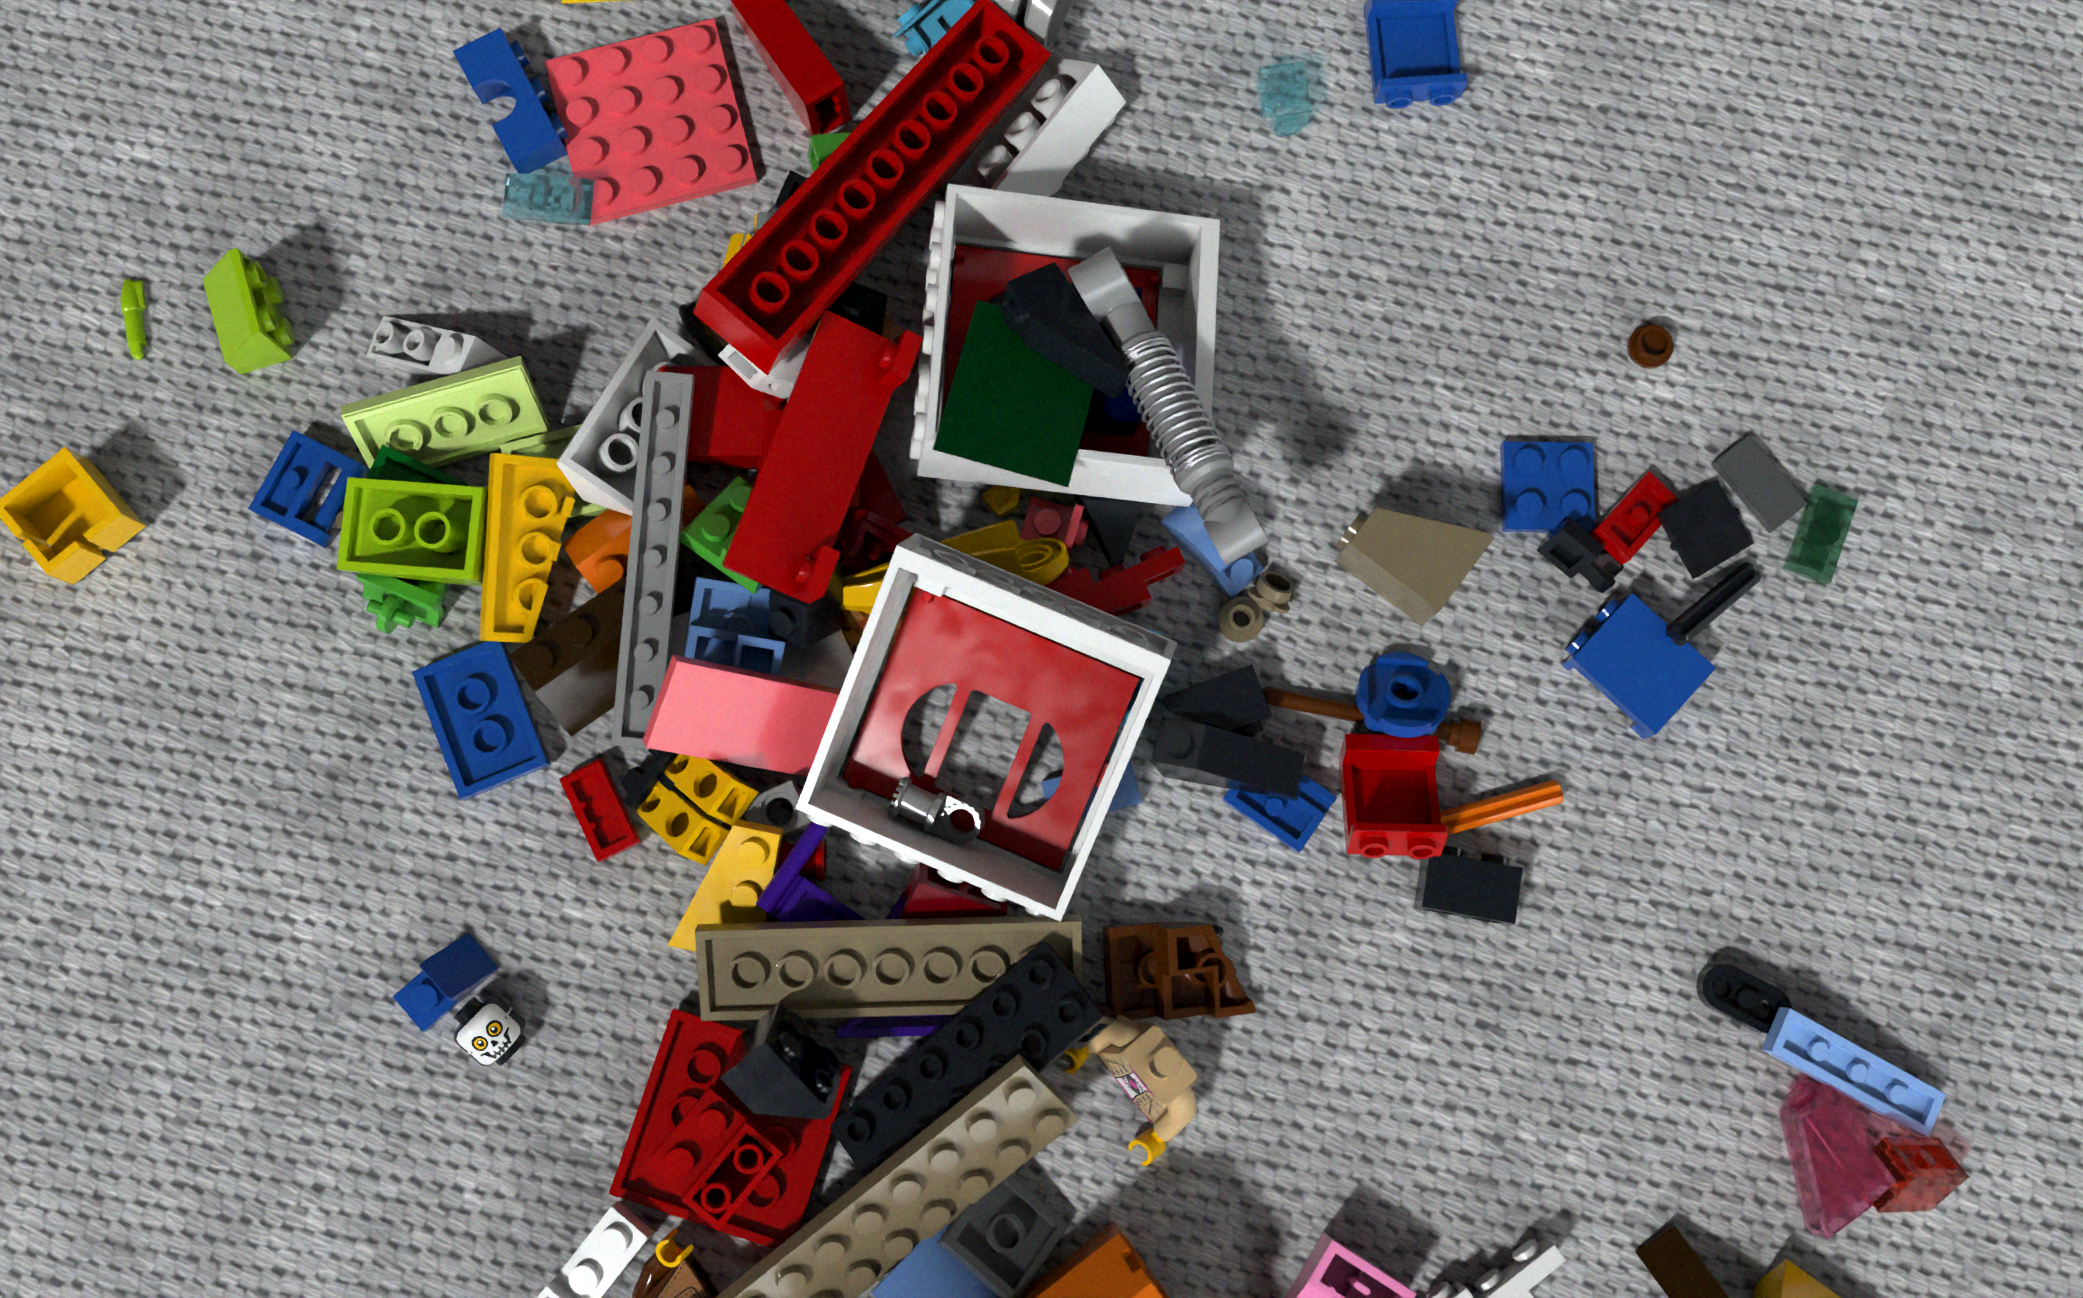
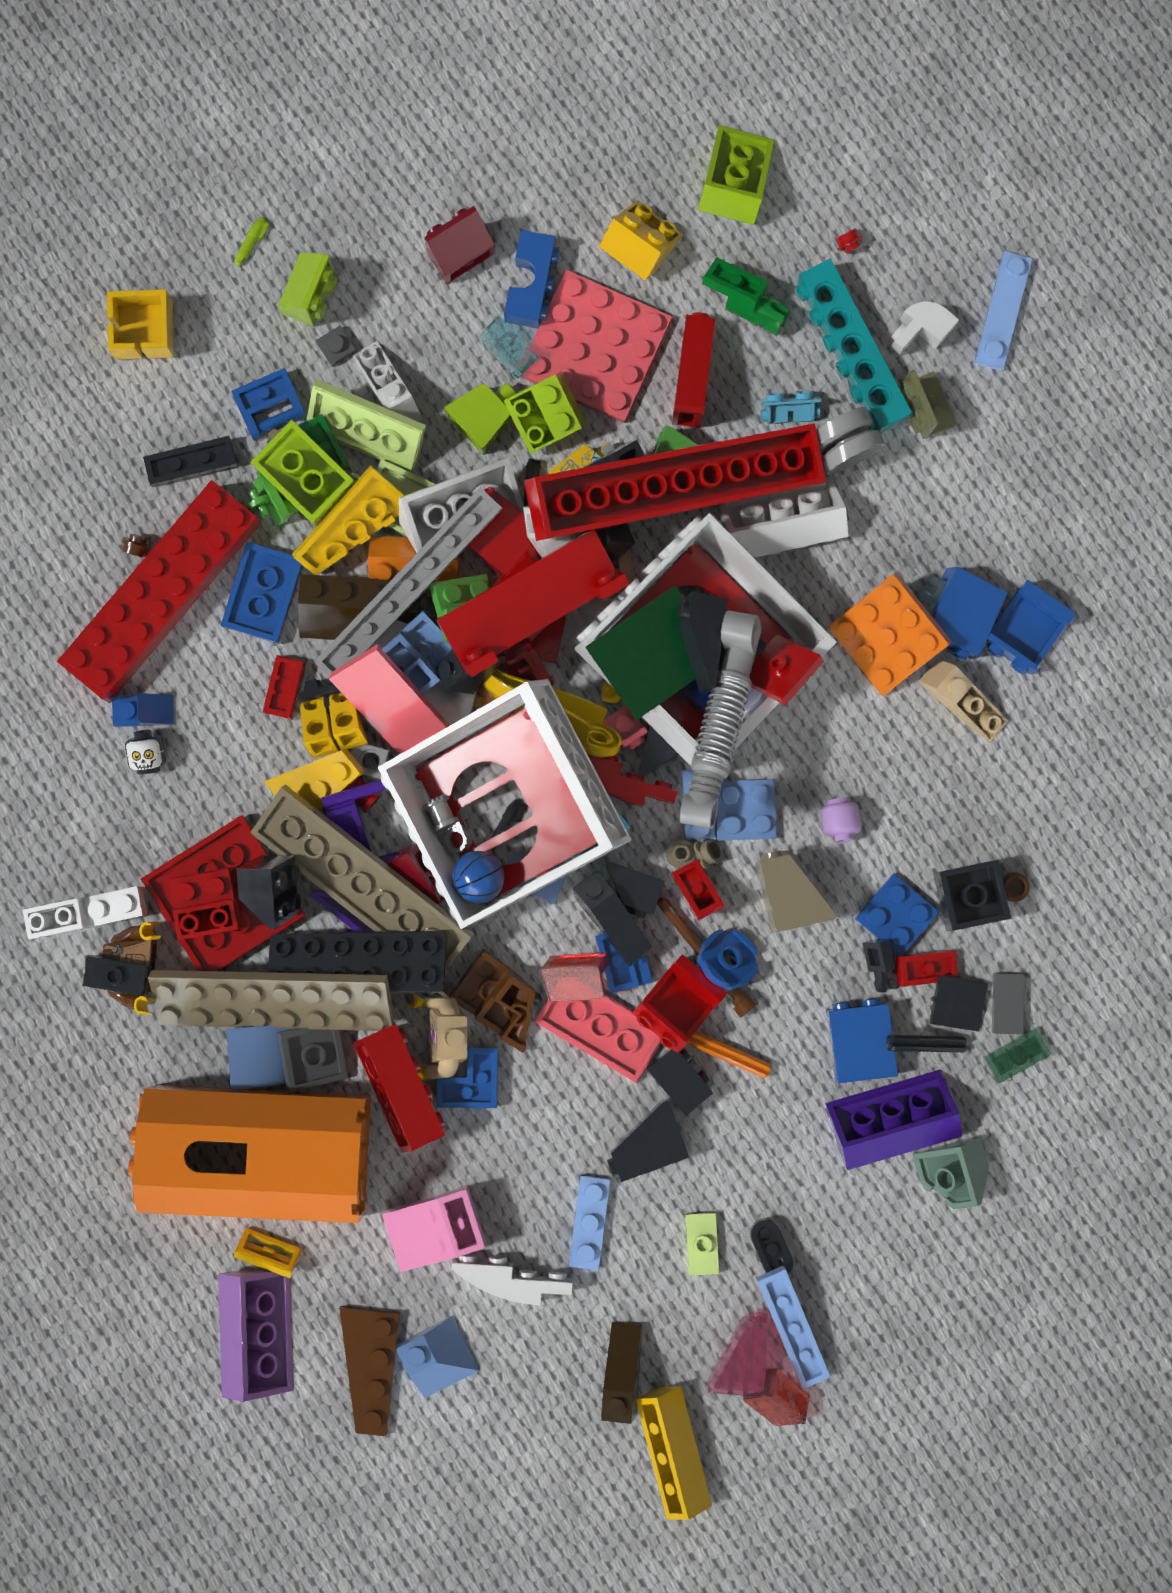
camera: 40 degrees right, 5 degrees up
(264, 633) = (190, 461): none -> black plate
(275, 787) = (135, 545): none -> reddish brown plate
(337, 359) = (335, 346): none -> dark grey plate
(349, 820) = (159, 592): none -> red brick
(391, 123) = (459, 244): none -> dark red slope
(579, 299) = (481, 414): none -> lime torso
(653, 235) = (545, 412): none -> lime slope
(1002, 741) = (508, 817): none -> black piece
(1027, 842) = (478, 877): none -> blue piece
(1147, 1184) = (399, 1088): none -> red slope
(1188, 294) = (783, 669): none -> red plate
(1237, 1101) = (476, 1089): none -> blue plate
(1242, 867) = (574, 977): none -> clear red panel
(1270, 169) = (889, 634): none -> orange plate
(1283, 504) = (746, 810): none -> medium blue plate
(1299, 644) = (697, 890): none -> red slope
(1317, 904) = (603, 1031): none -> coral tile
(1331, 83) = (967, 611): none -> blue panel
(1392, 427) = (841, 819): none -> lavender head
(1406, 179) = (963, 699): none -> tan slope
(1498, 996) = (649, 1145): none -> black slope
(1506, 1152) = (589, 1222): none -> light blue plate
(1616, 391) = (972, 895): none -> black brick
(1659, 1063) = (702, 1243): none -> yellowish green plate
(1752, 724) = (894, 1119): none -> dark purple slope
(1874, 726) = (955, 1171): none -> sand green slope

